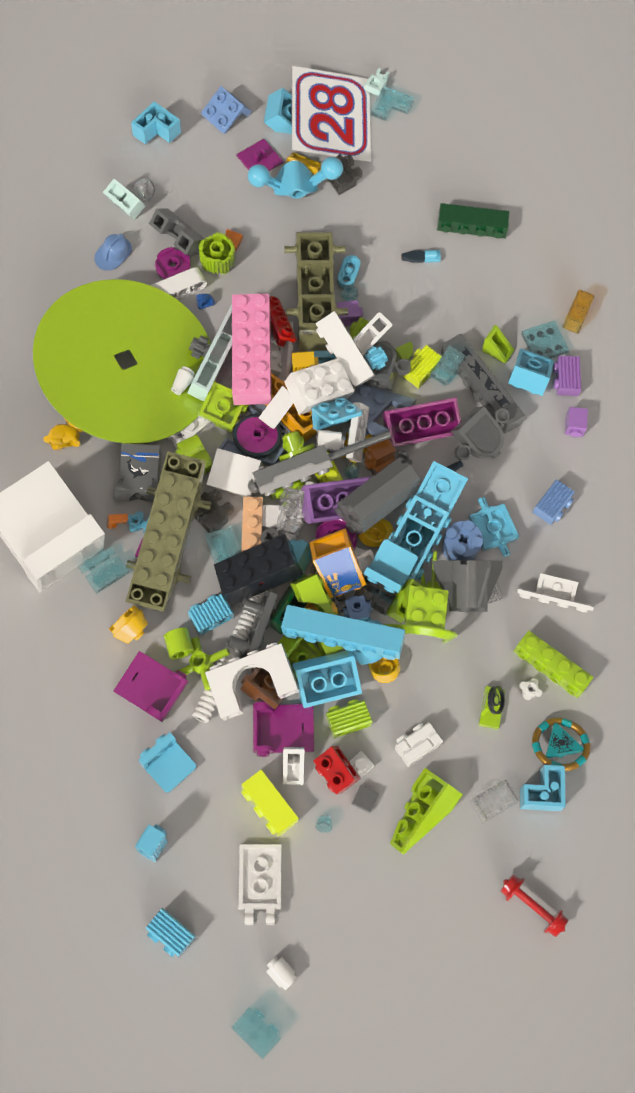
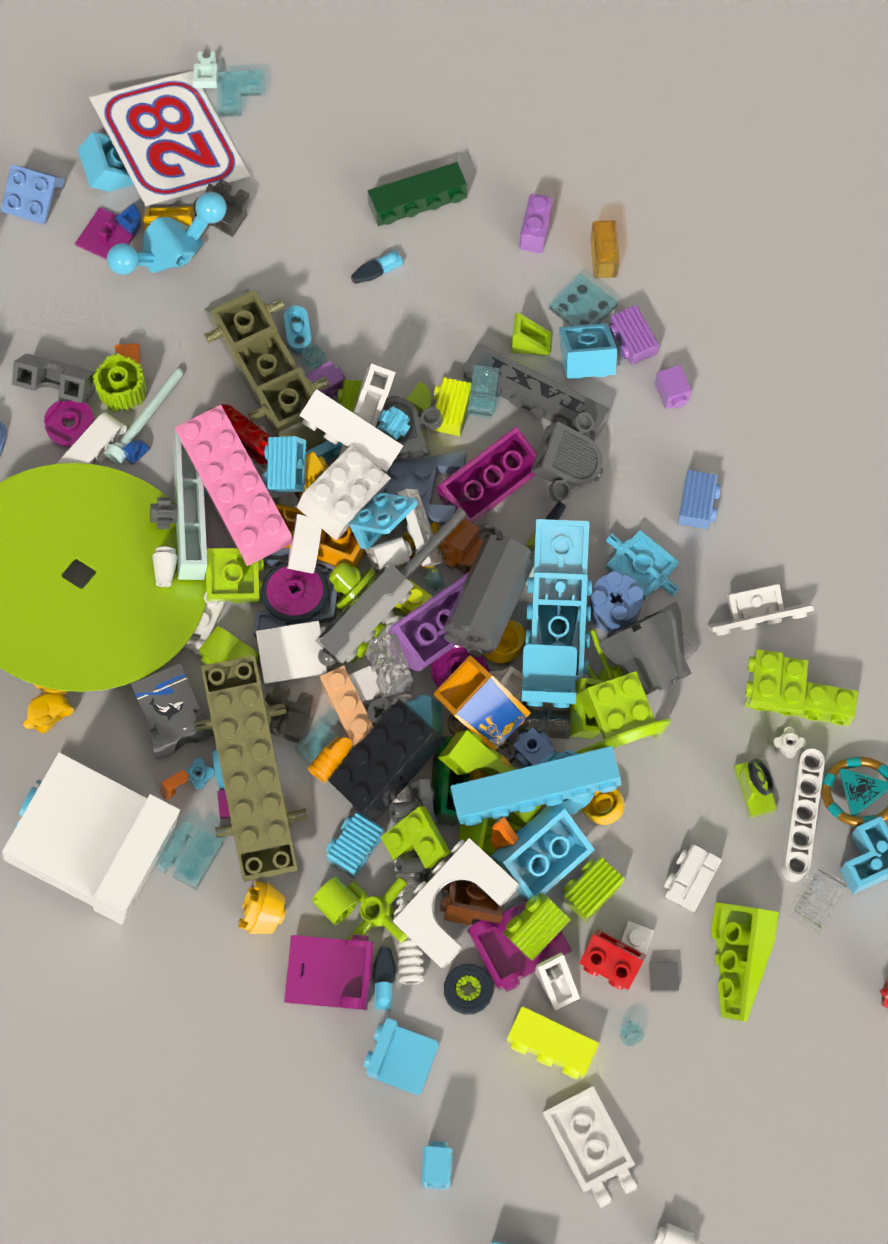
camera: 20 degrees left, 0 degrees up
(184, 708) = (384, 976): none -> piece
(190, 295) = (115, 451): none -> light aqua piece
(222, 551) = (330, 758): none -> light orange hinge
(232, 732) = (480, 981): none -> black bush
(252, 626) = (418, 833): none -> lime plate
(278, 154) = (129, 219): none -> blue tile
(290, 350) = (285, 464): none -> medium azure brick
(297, 722) = (536, 925): none -> lime brick
(306, 653) = (502, 834): none -> orange tile
(520, 733) = (798, 826): none -> white beam
(540, 644) = (777, 682): none -> lime plate
(541, 274) = (536, 223): none -> medium lavender brick

